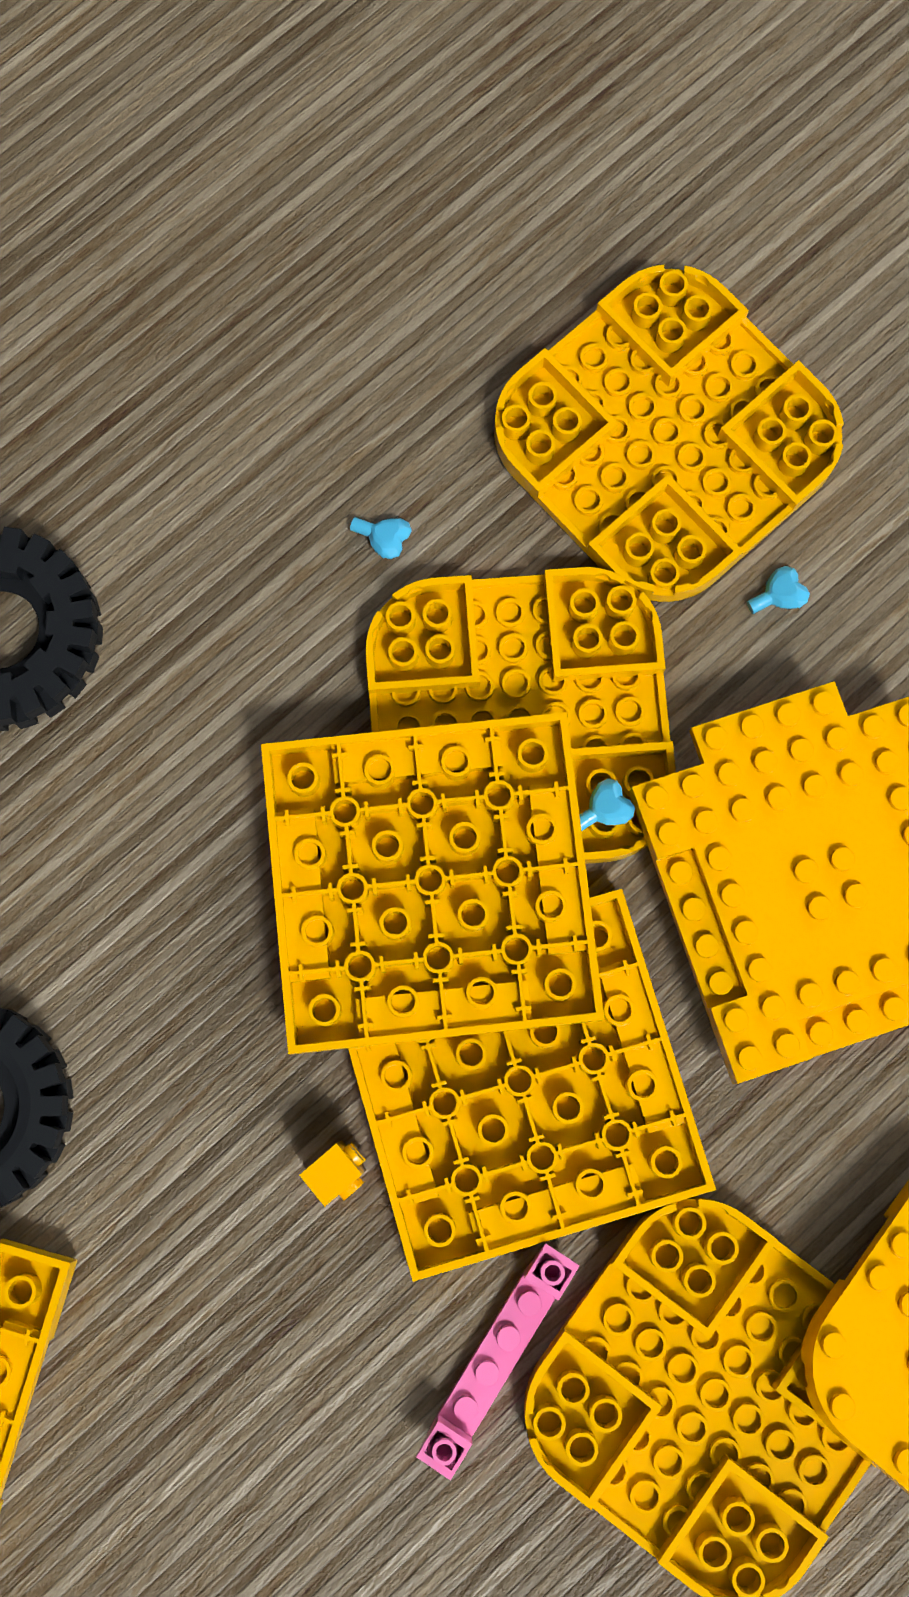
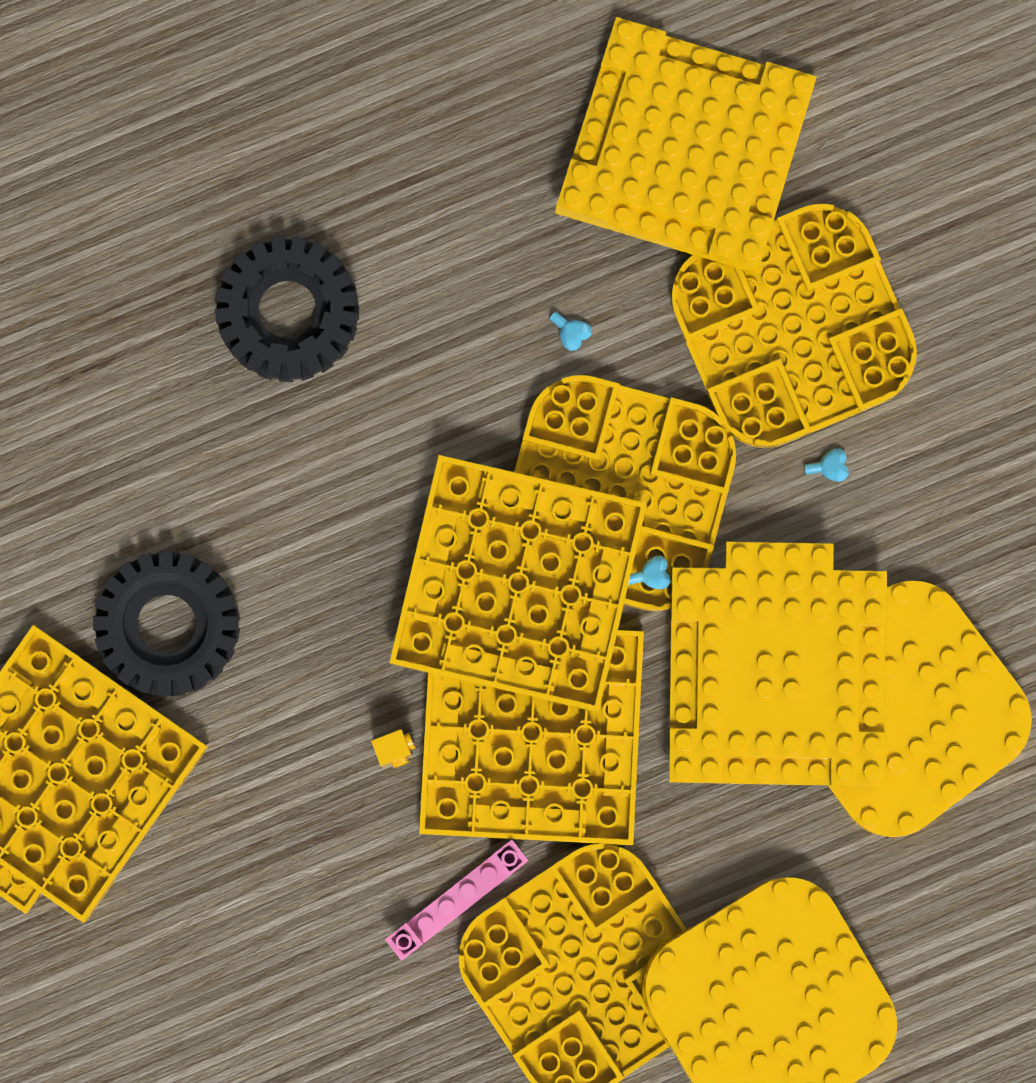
camera: 25 degrees right, 5 degrees up
(449, 259) = (686, 146): none -> yellow plate

